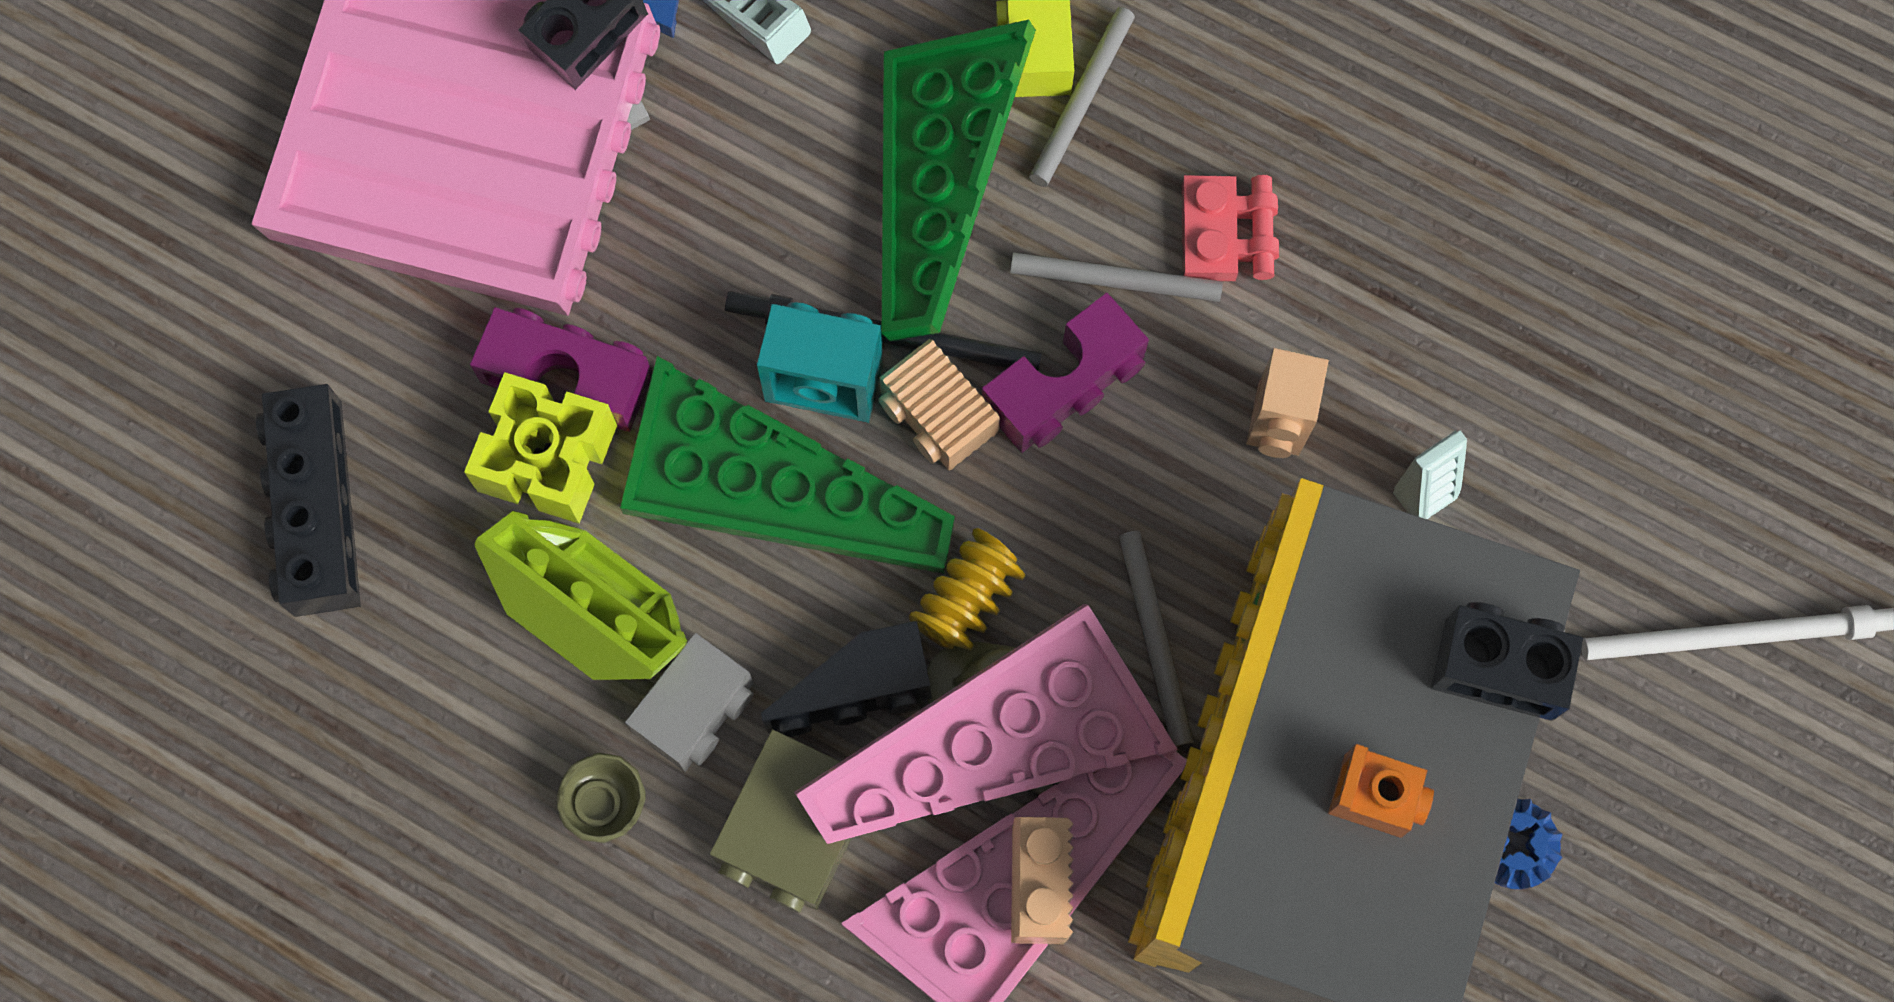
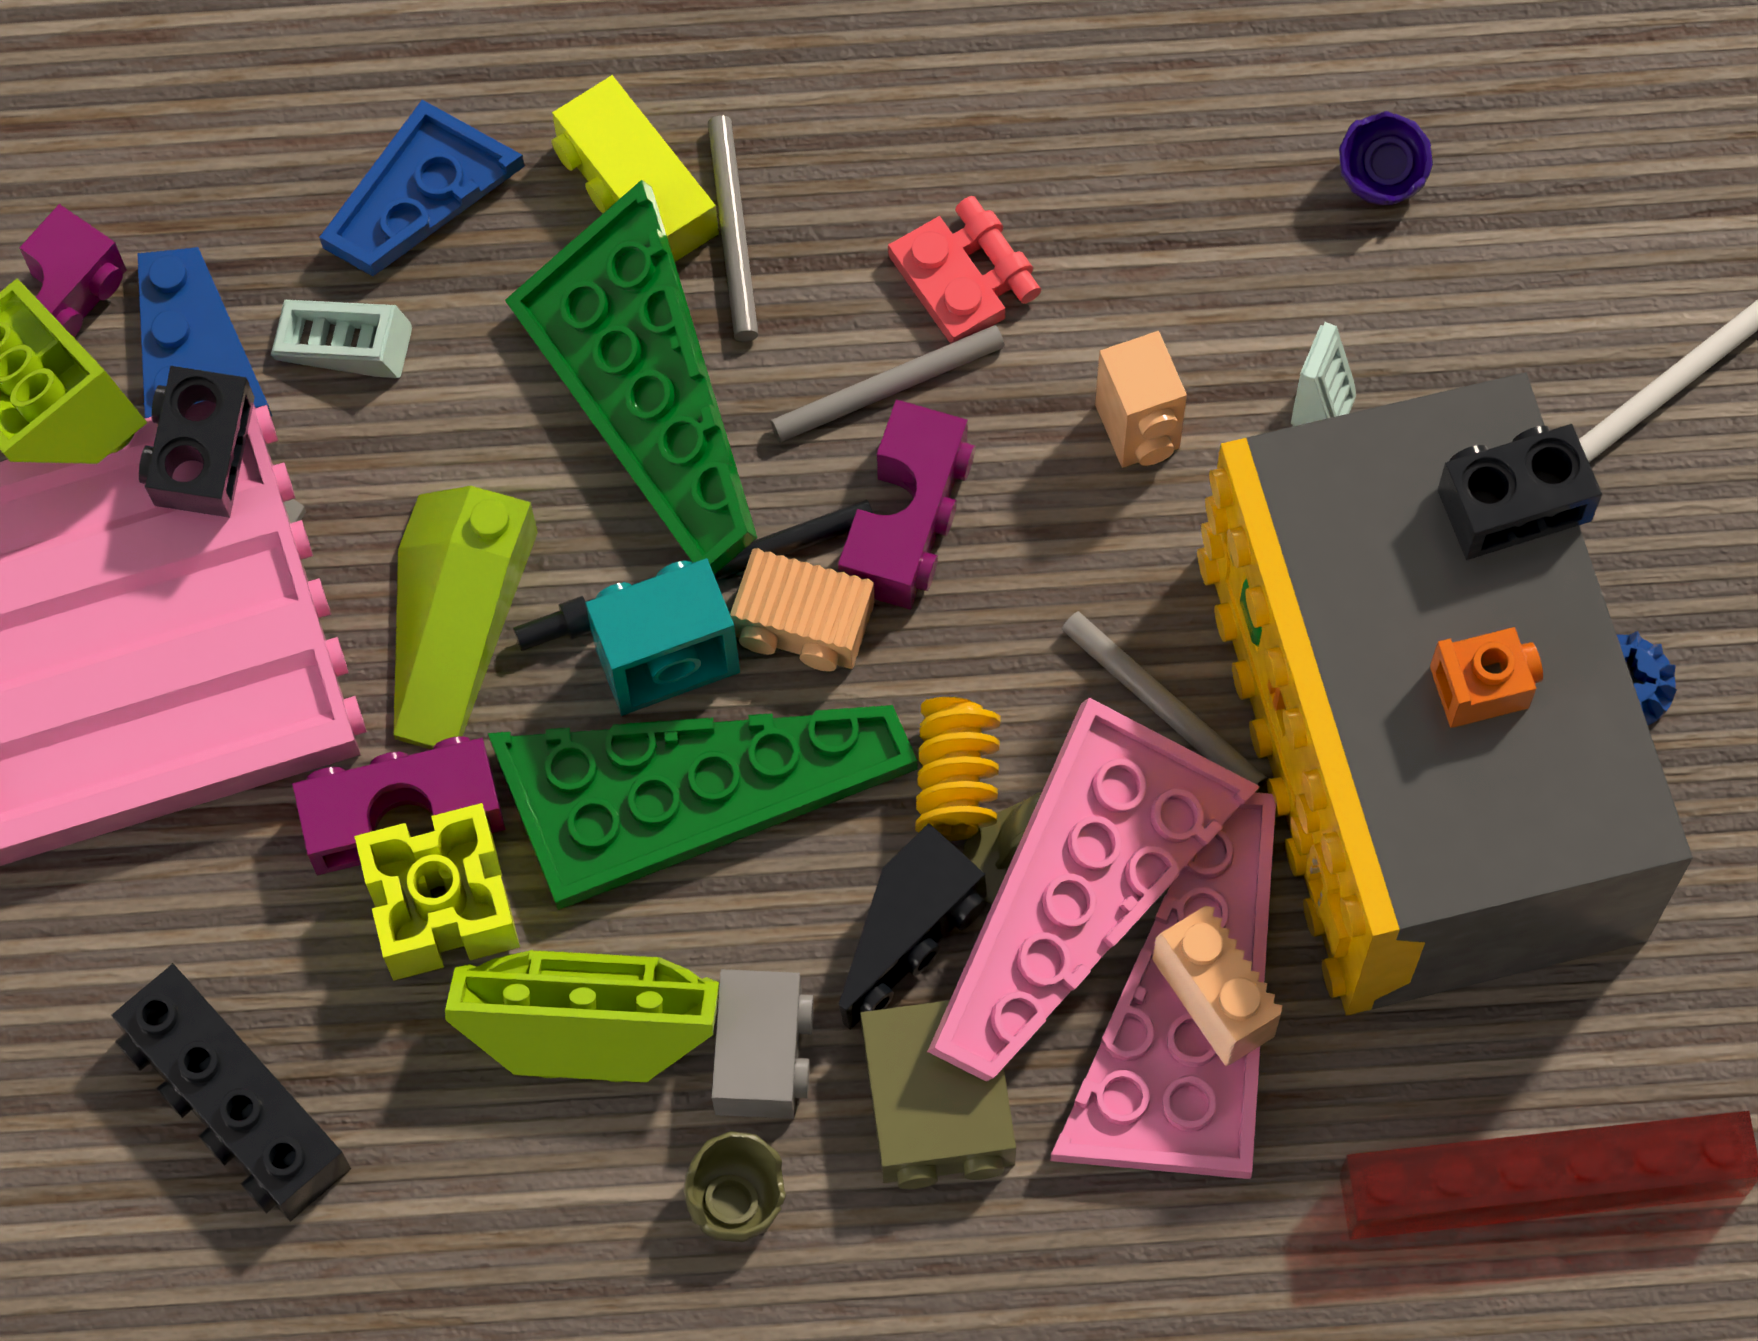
camera: 30 degrees left, 5 degrees down
(705, 244) = (453, 597): none -> lime wedge
(1598, 332) = (1385, 158): none -> dark purple hair

